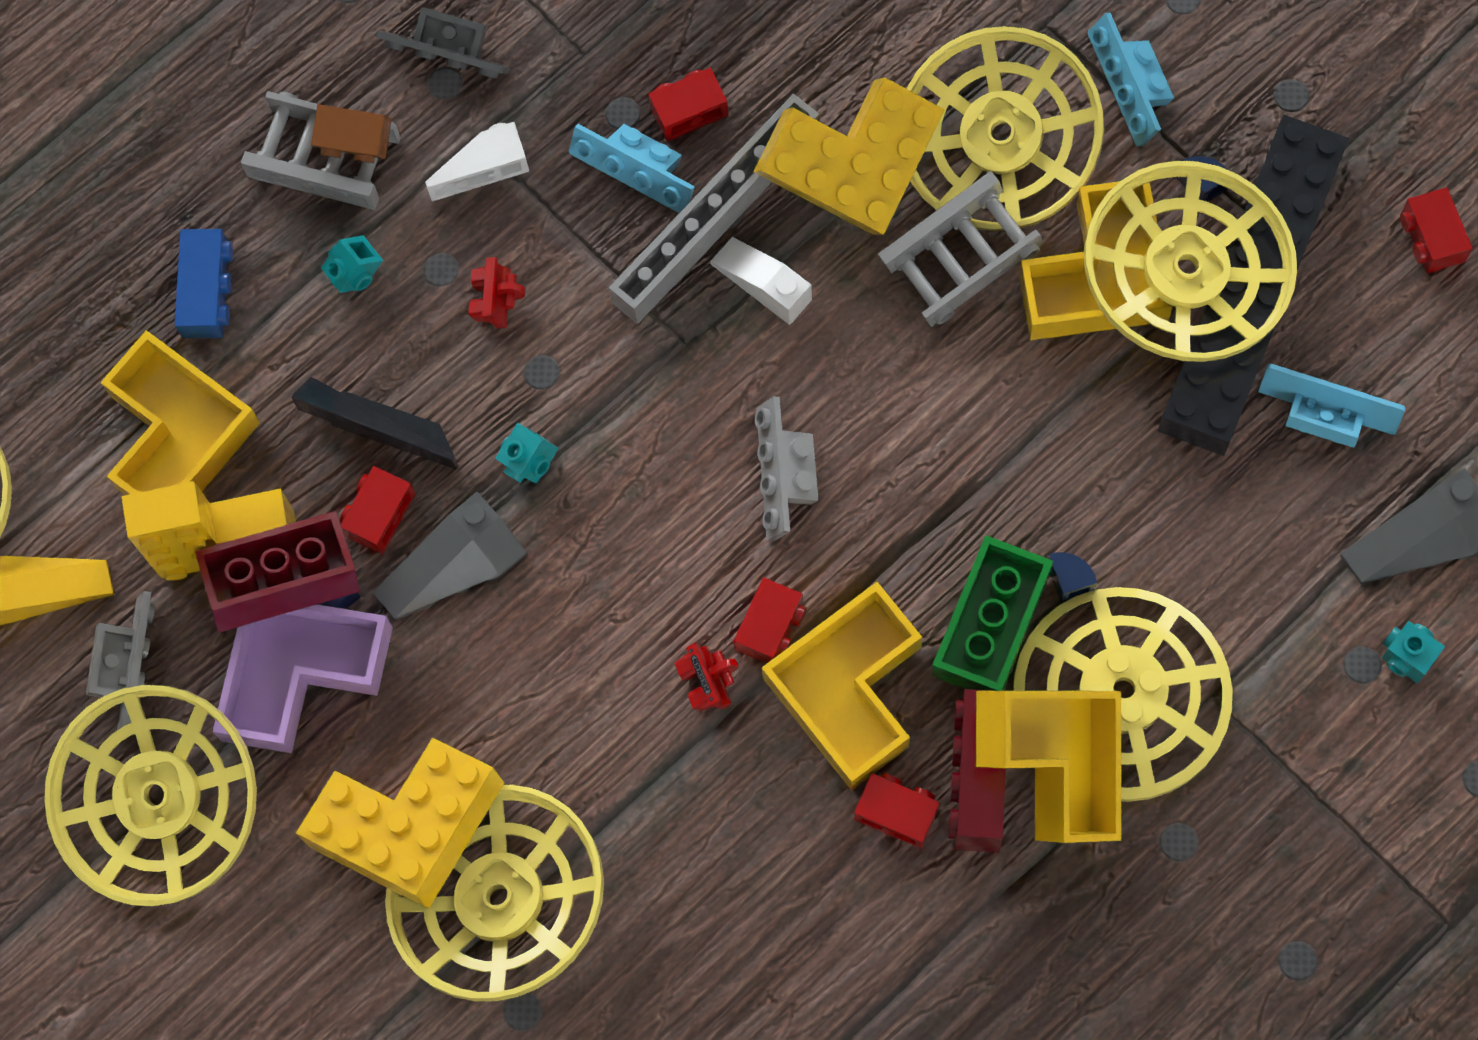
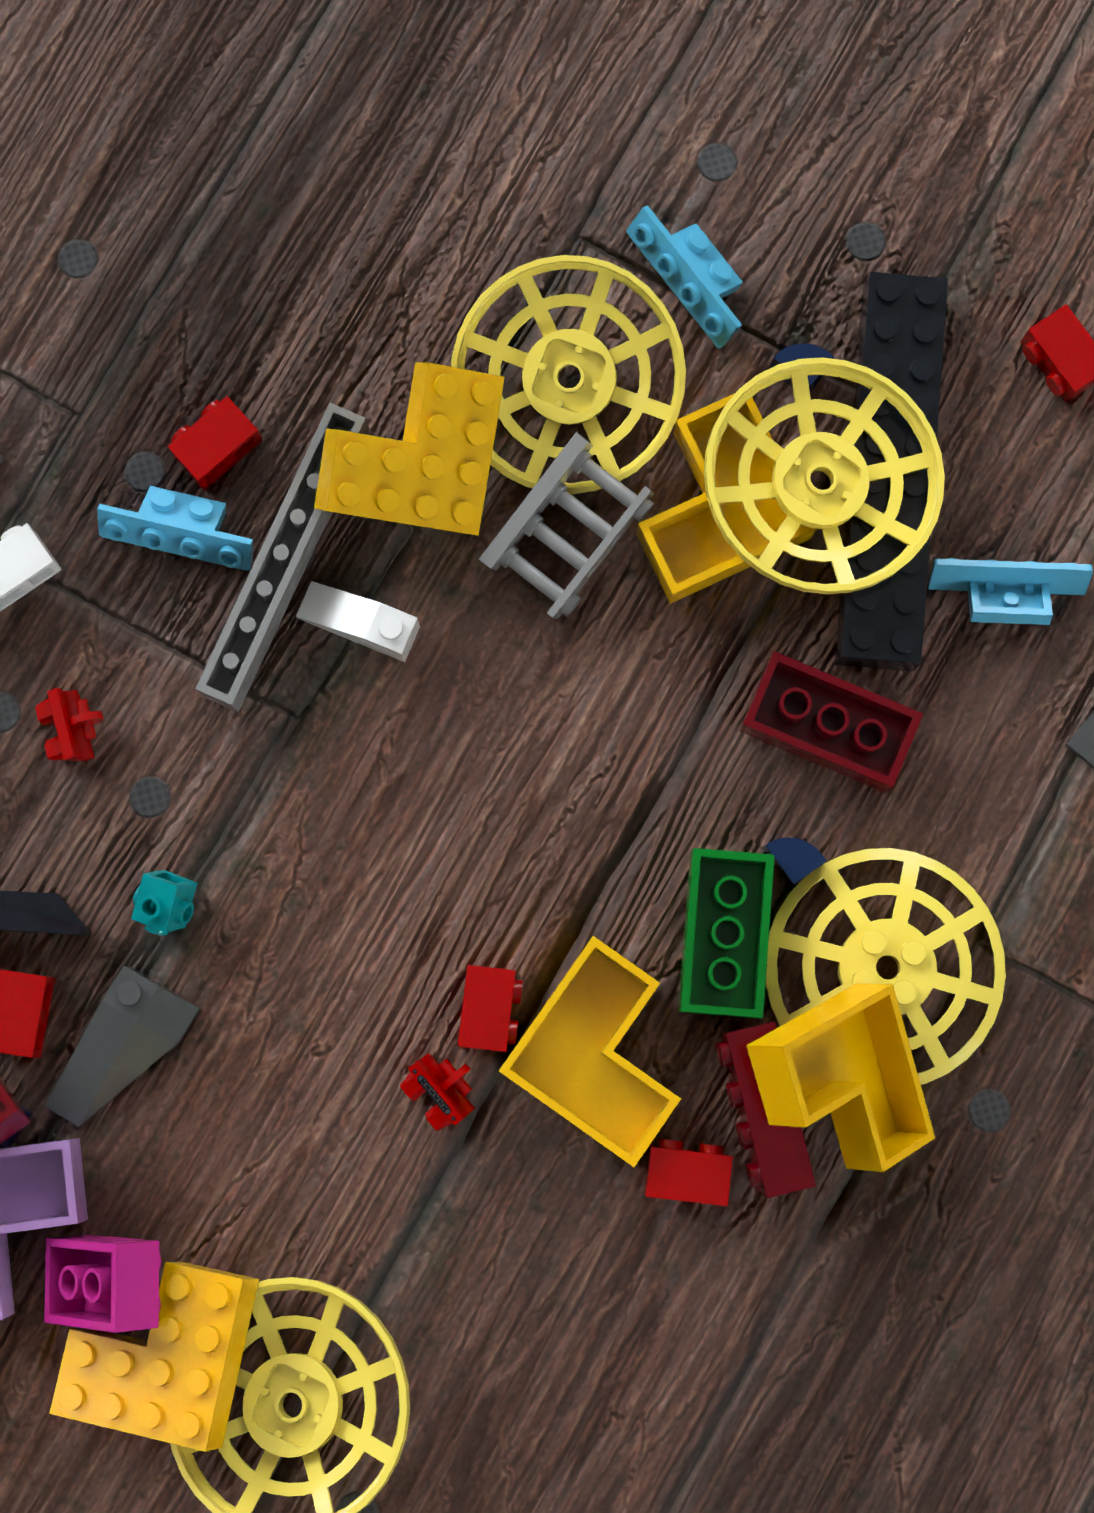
camera: 25 degrees left, 10 degrees up
(375, 737) = (102, 1282): none -> dark pink brick
(786, 468) = (452, 830): light grey bracket -> none
(1136, 471) = (831, 722): none -> dark red brick

